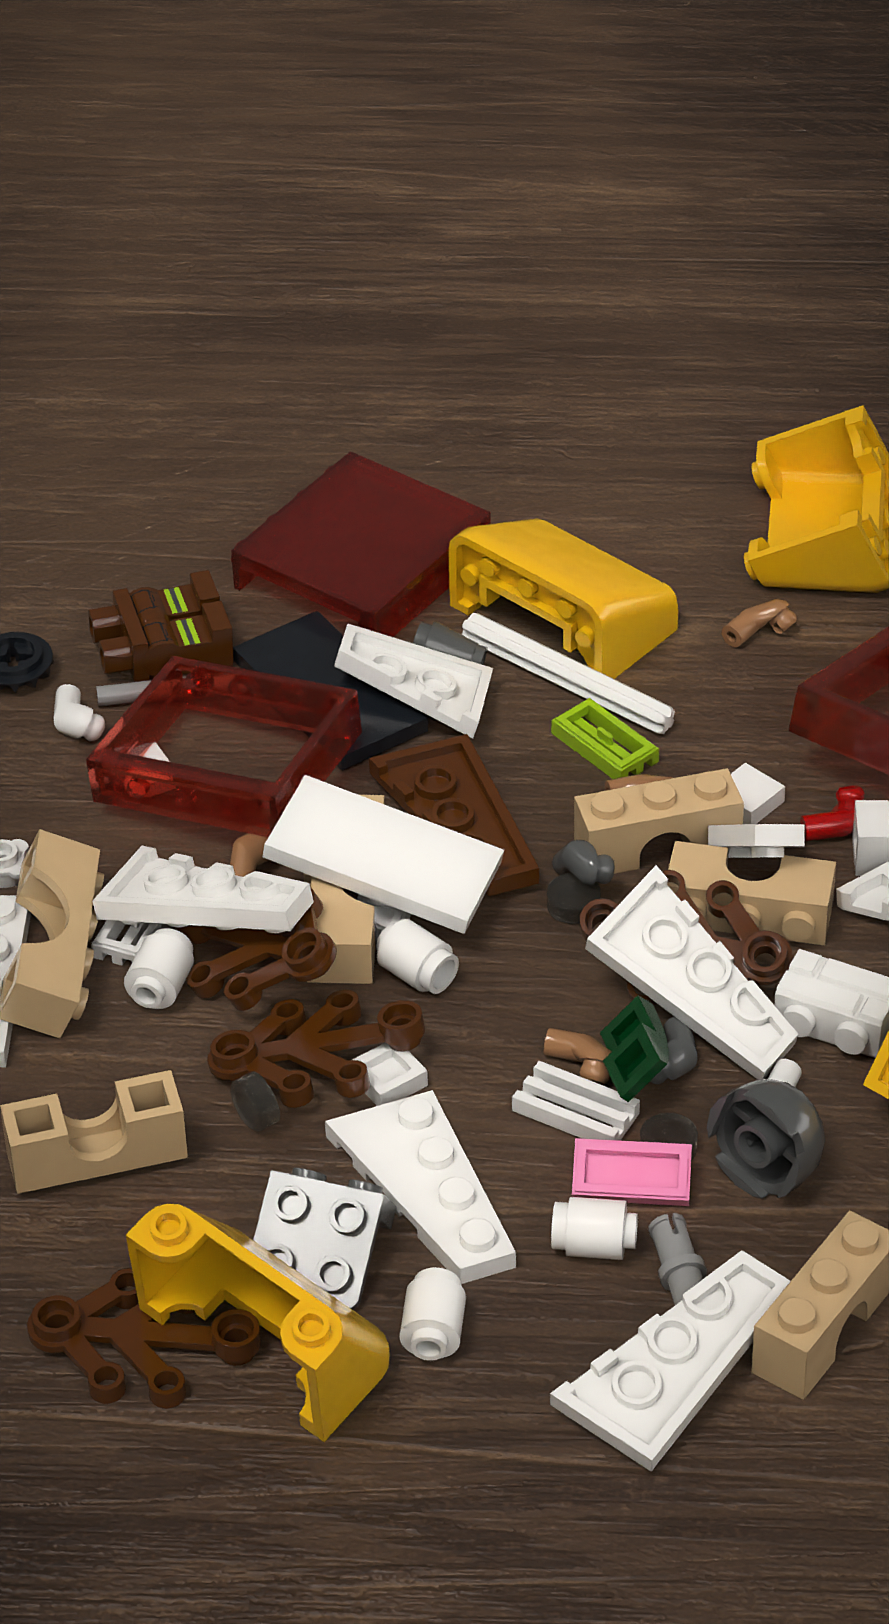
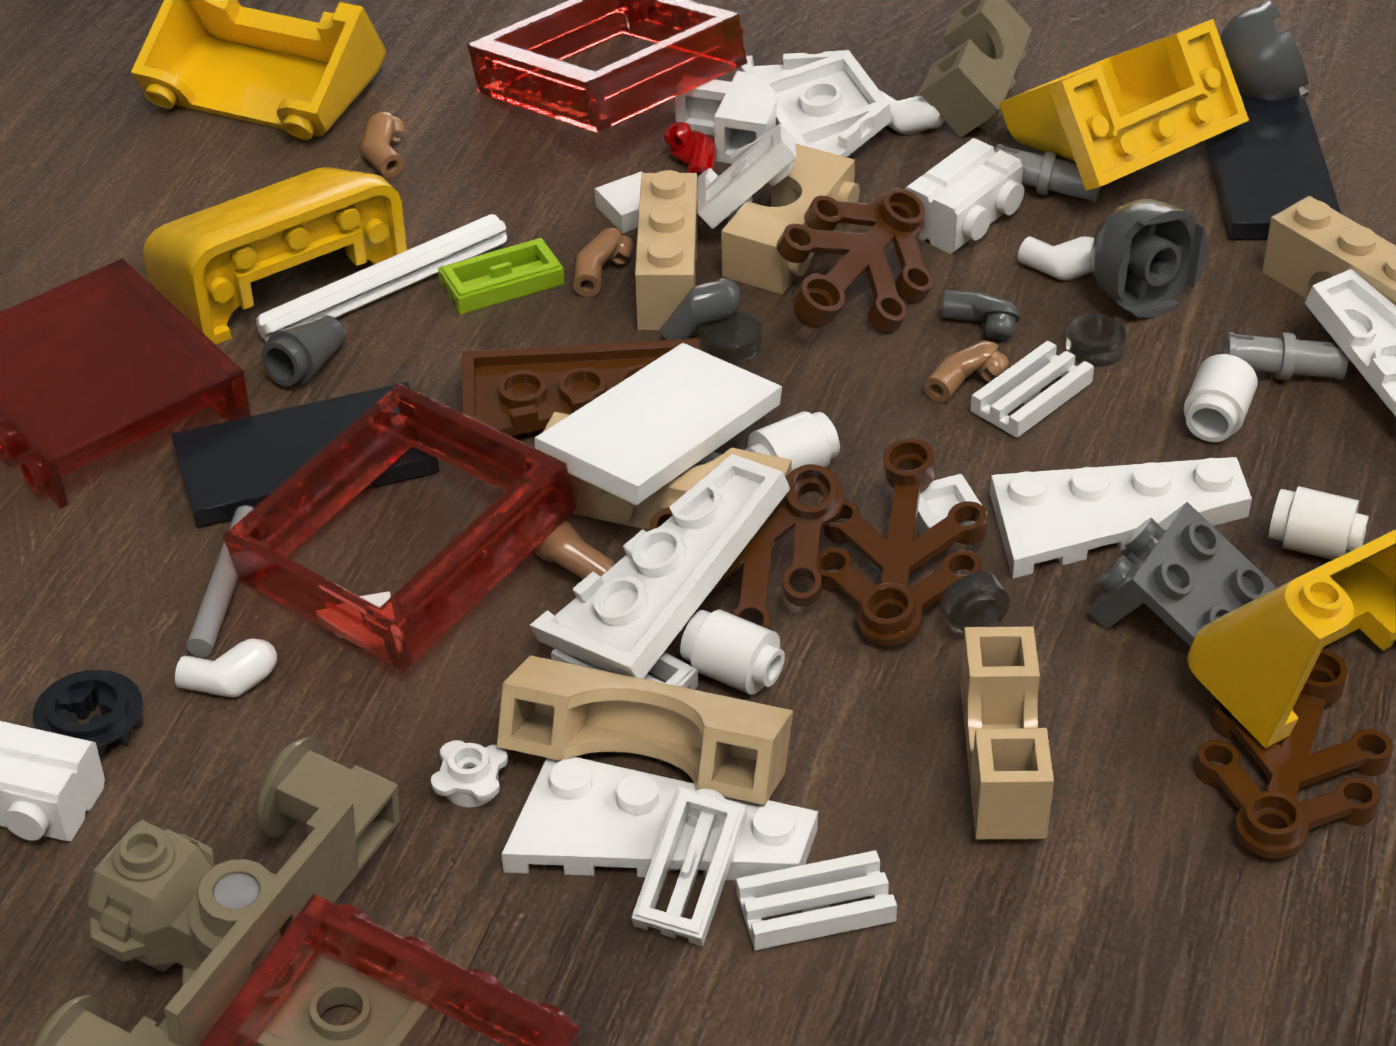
camera: 75 degrees left, 0 degrees up
(155, 624) = (128, 562): reddish brown hips -> none
(419, 676) = (352, 365): white wing -> none
(632, 1171) = (1143, 364): bright pink tile -> none
(636, 1047) = (1006, 315): dark green slope -> none
(677, 964) = (910, 261): white wing -> none

